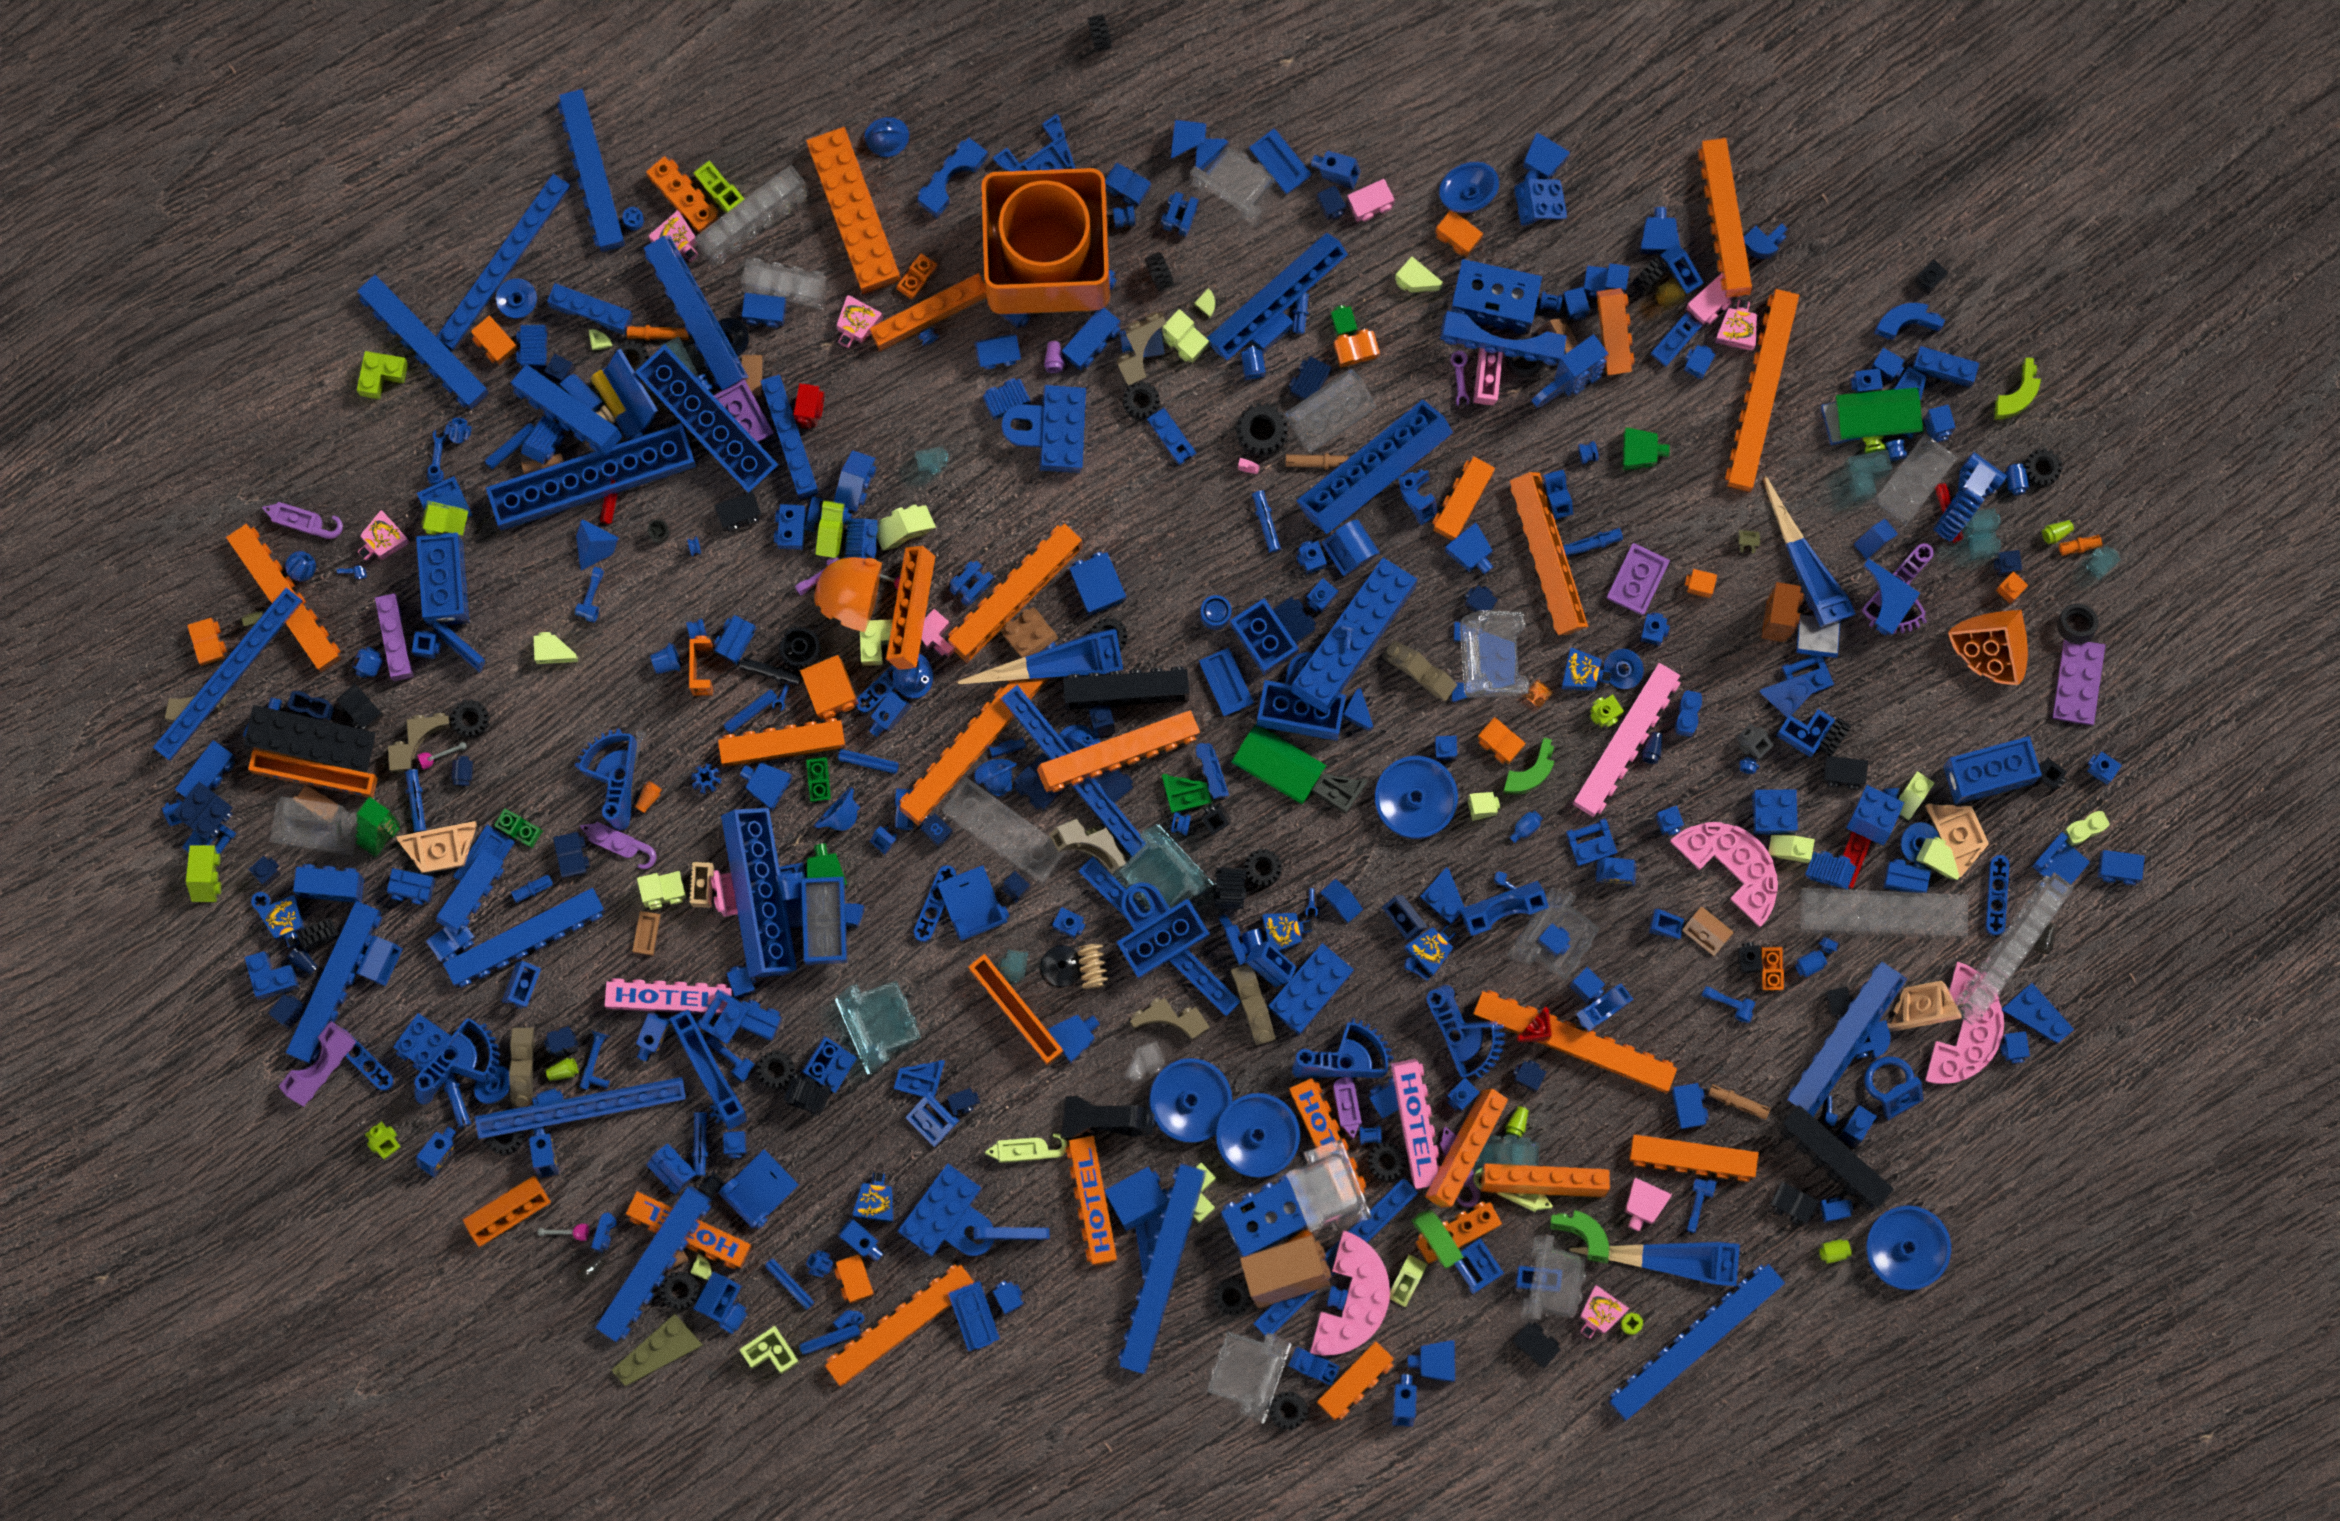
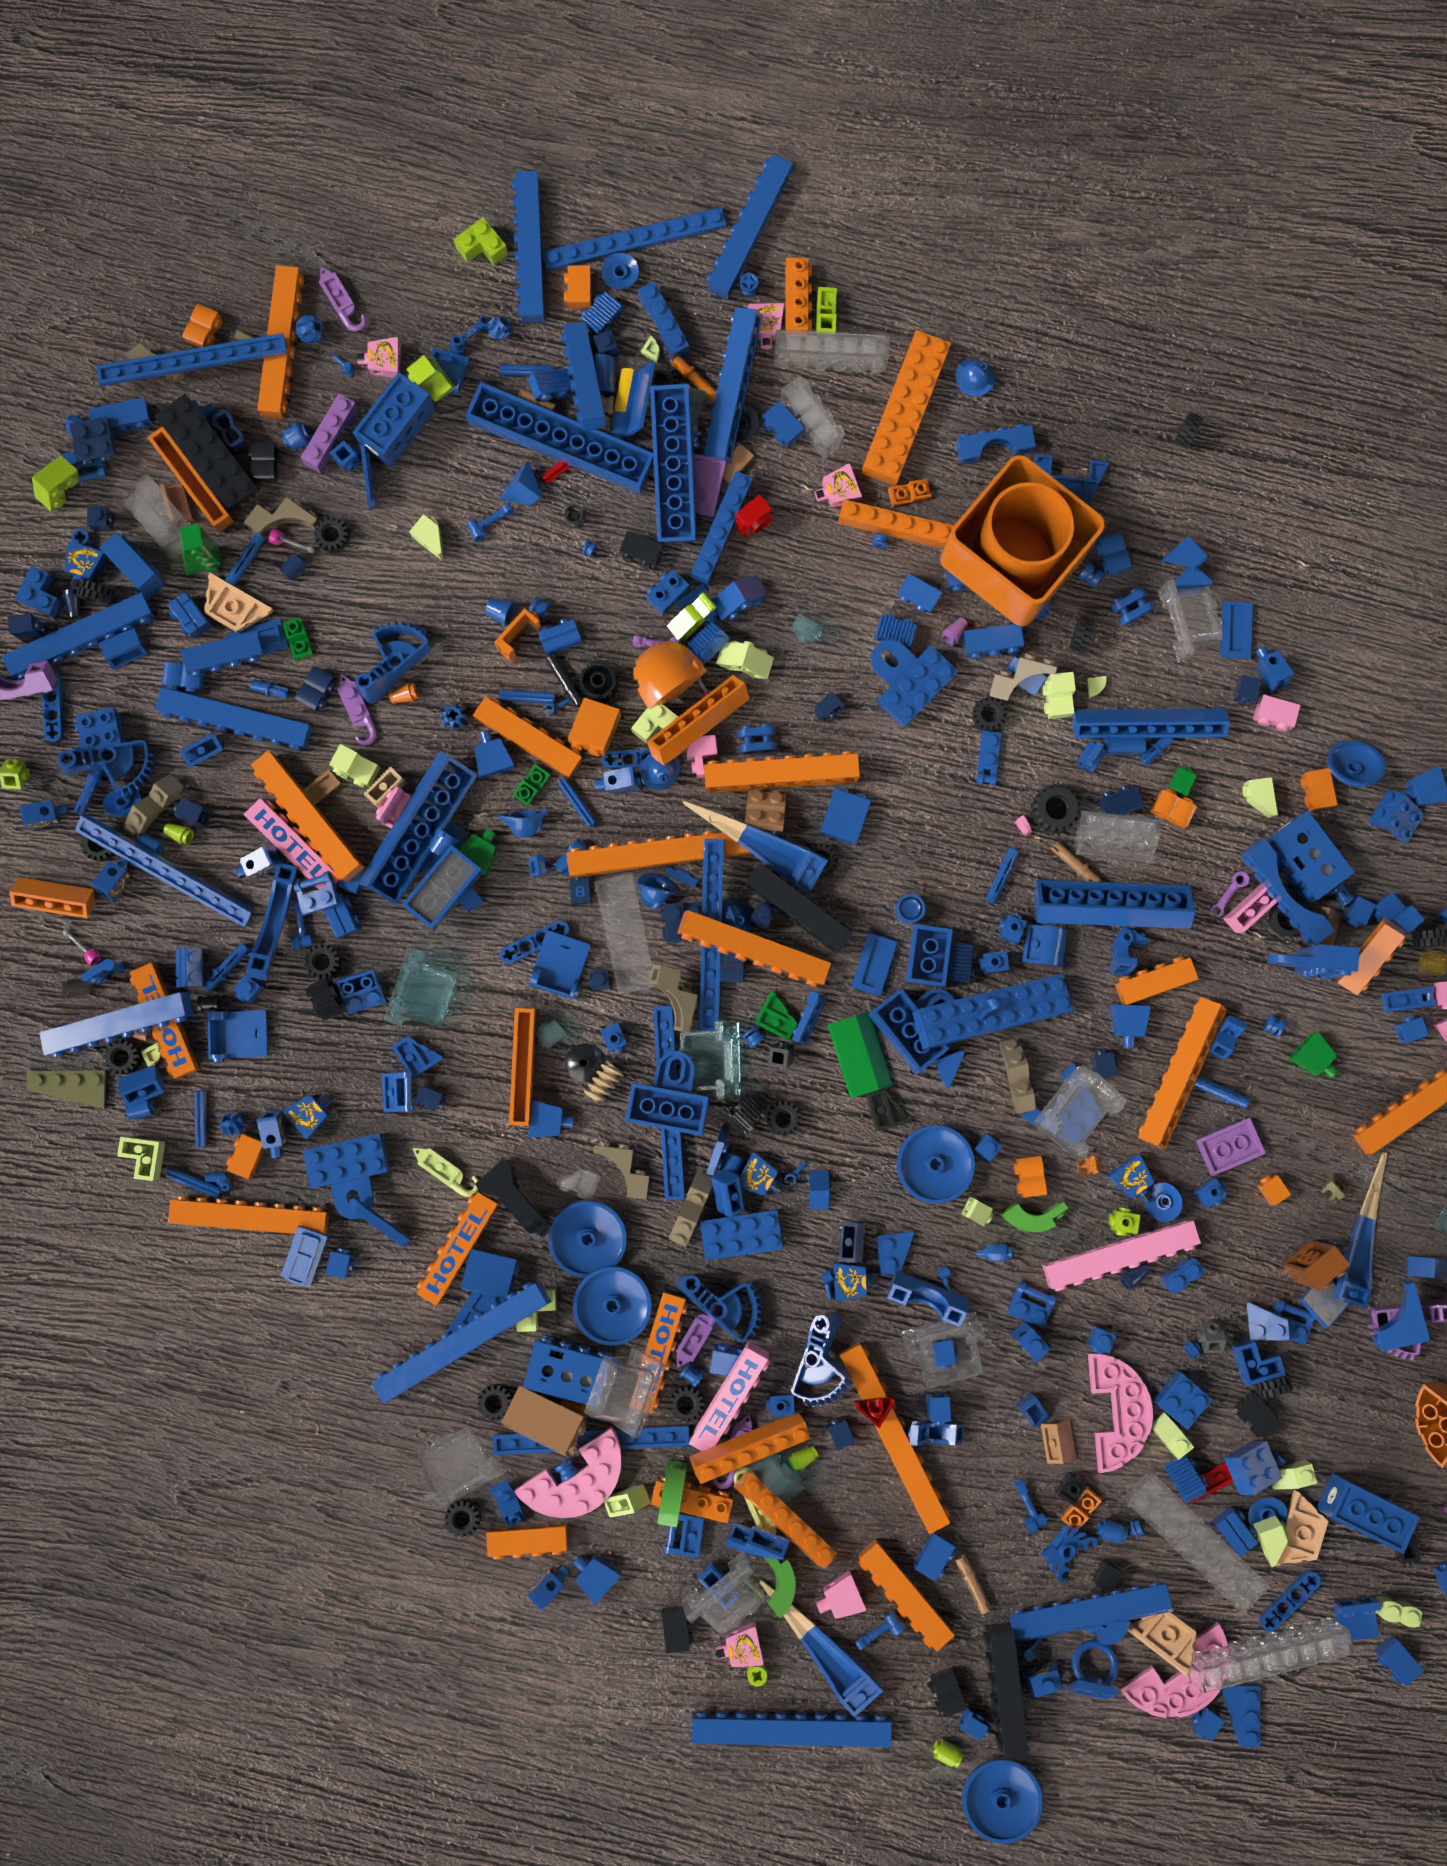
camera: 40 degrees right, 5 degrees up
(587, 1077) = (192, 853): blue piece -> none
(659, 961) = (307, 816): none -> orange brick
(1005, 507) = (828, 707): none -> dark blue brick
(1537, 1217) = (757, 1542): none -> blue slope
(1784, 1009) = (1064, 1548): none -> blue animal

